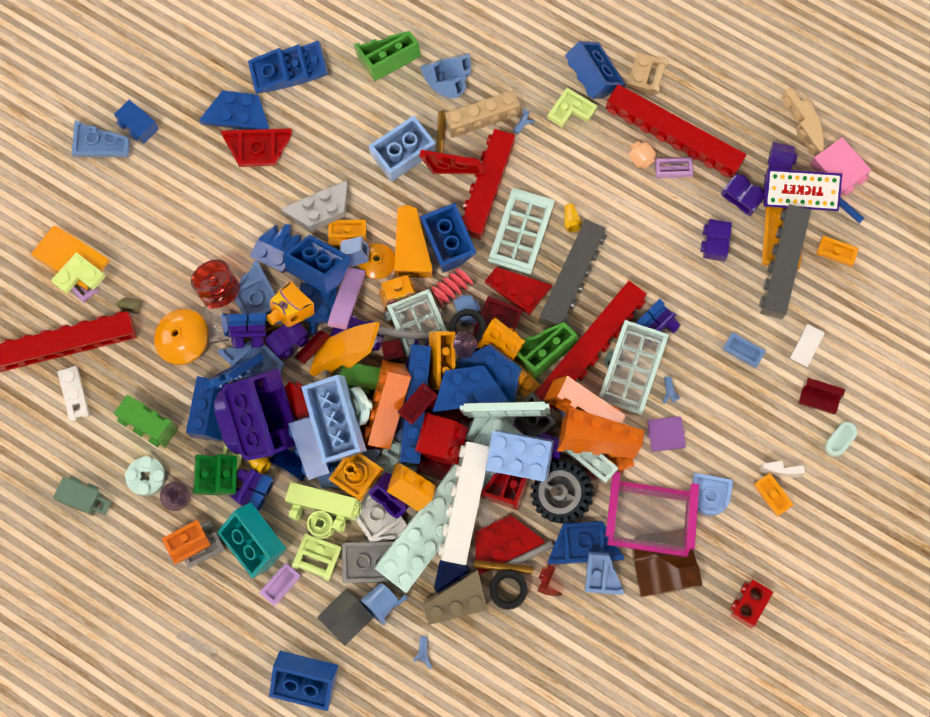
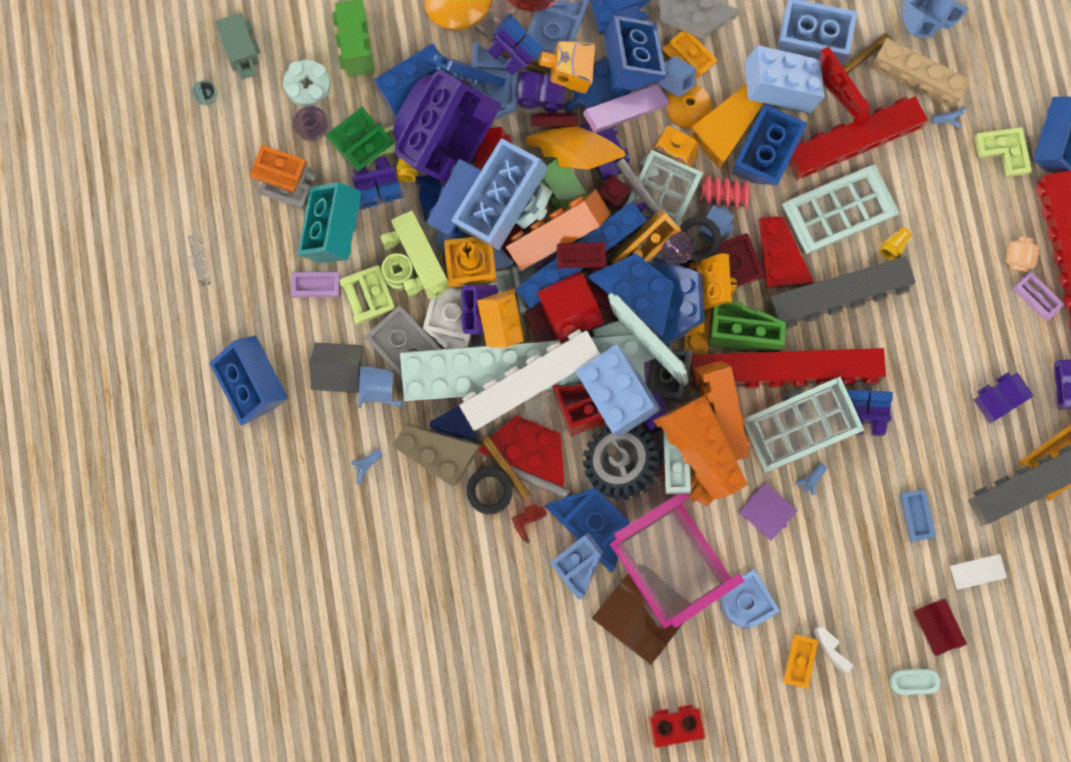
camera: 45 degrees right, 5 degrees up
(90, 546) = (204, 92): none -> clear light blue tile
(415, 192) = (784, 79): none -> light blue brick

